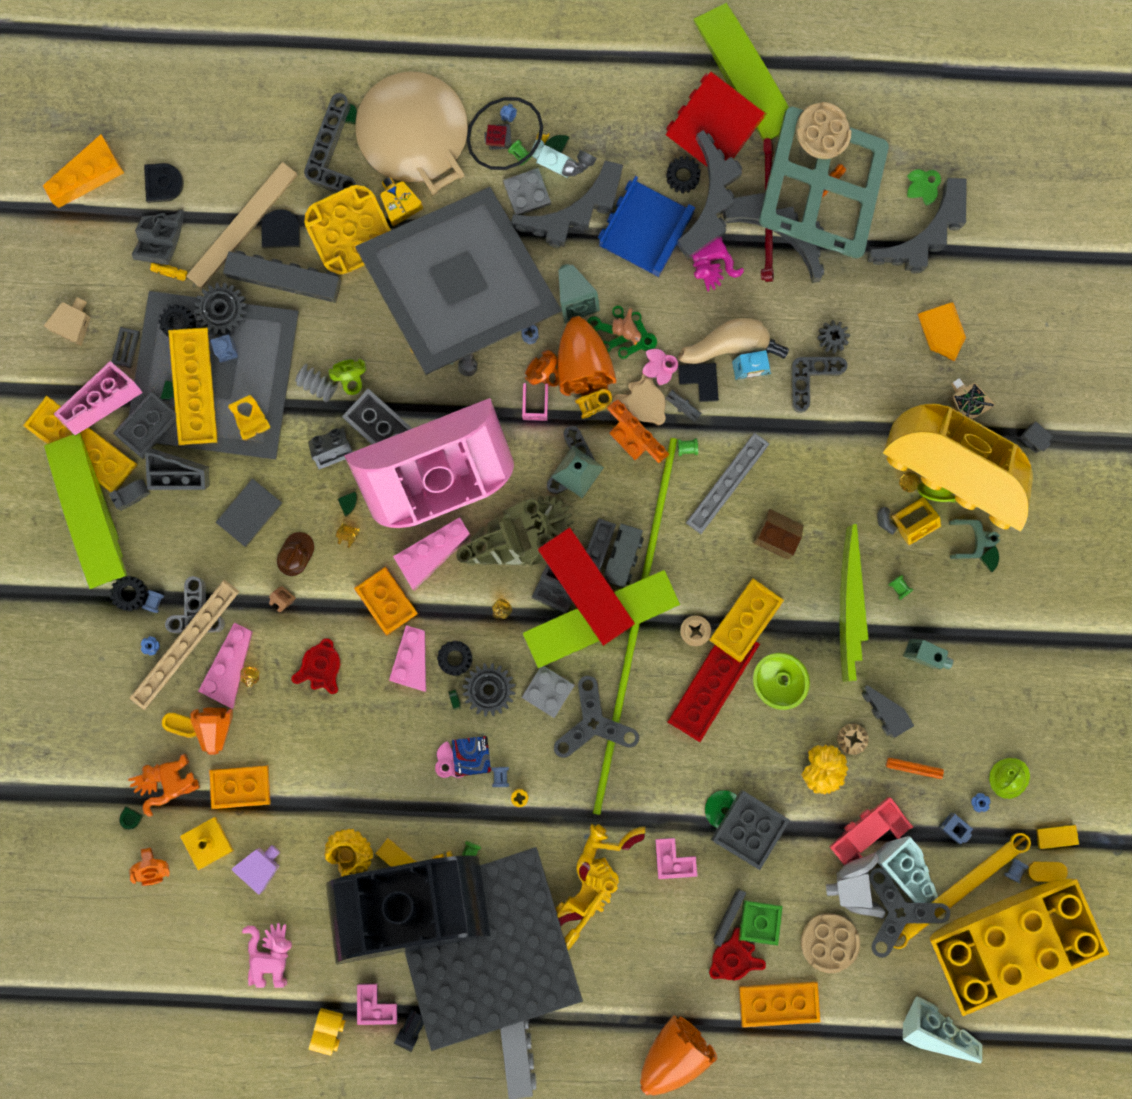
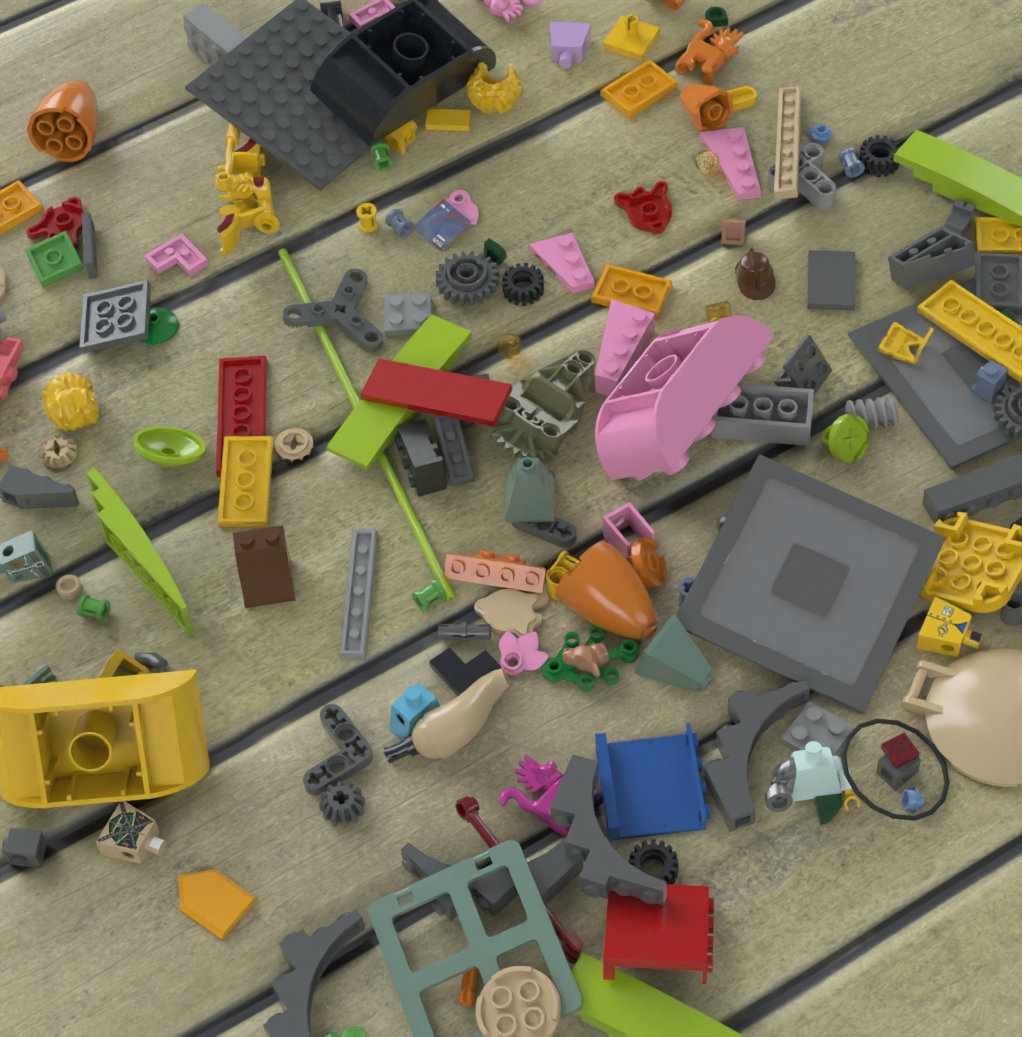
camera: 150 degrees right, 30 degrees down
(518, 151) = (862, 765): bright green bush -> none
(905, 619) = (69, 587): none -> tan tile

